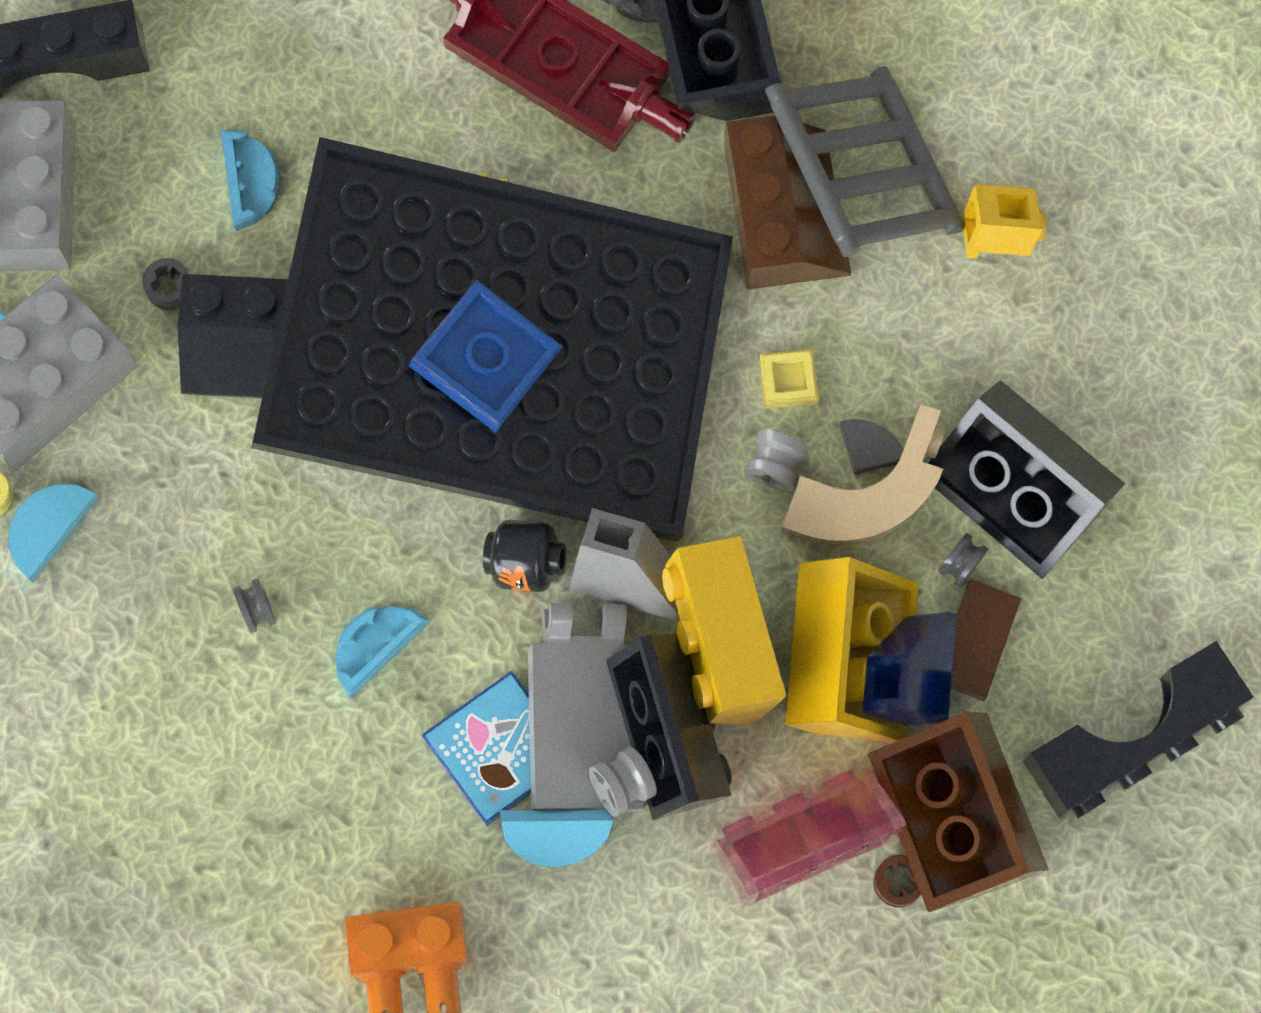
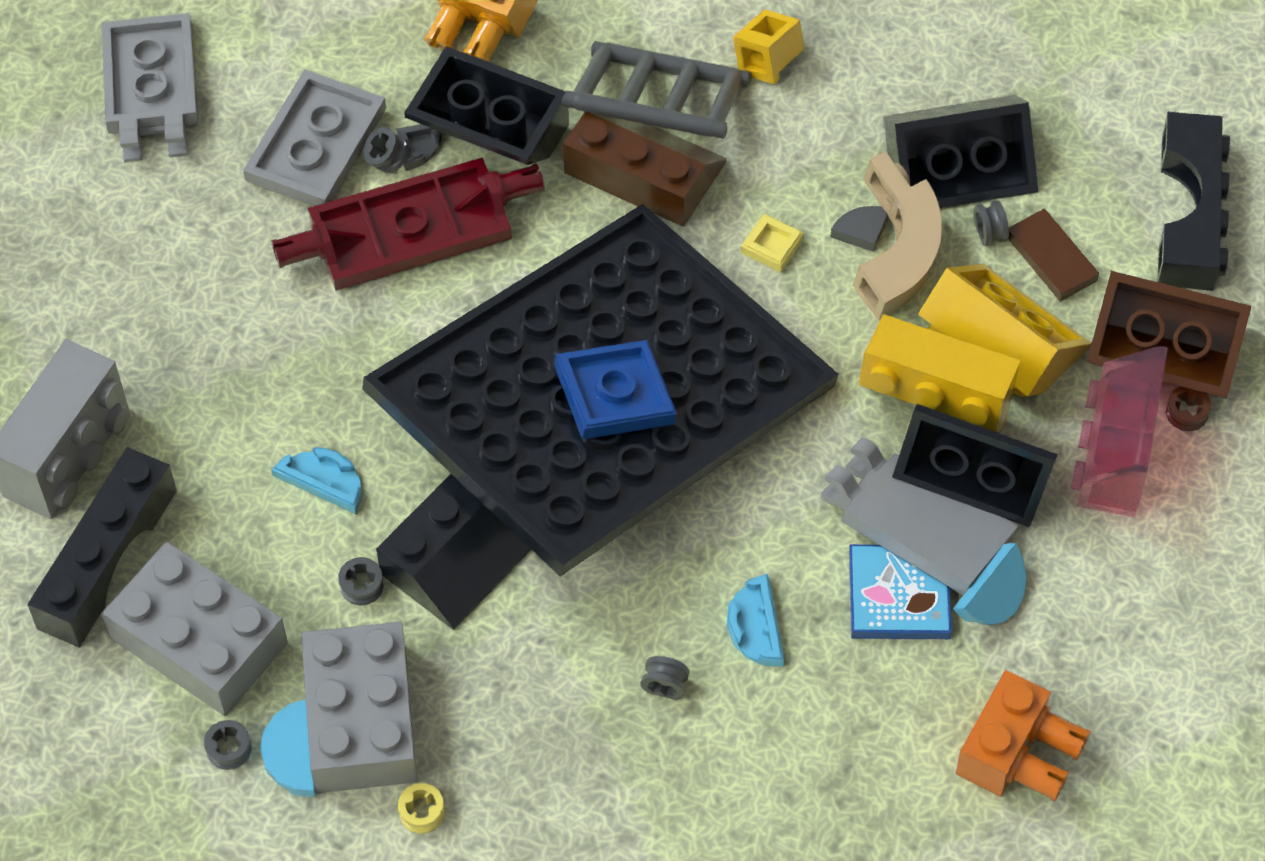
camera: 50 degrees left, 15 degrees down
(45, 524) = (479, 784): medium azure tile -> none
(524, 555) = (771, 479): black head -> none
(622, 564) = (830, 420): light grey slope -> none
(622, 781) = (994, 515): light grey wheel -> none
(776, 460) = (829, 283): light grey wheel -> none
(912, 671) = (1051, 294): clear blue slope -> none

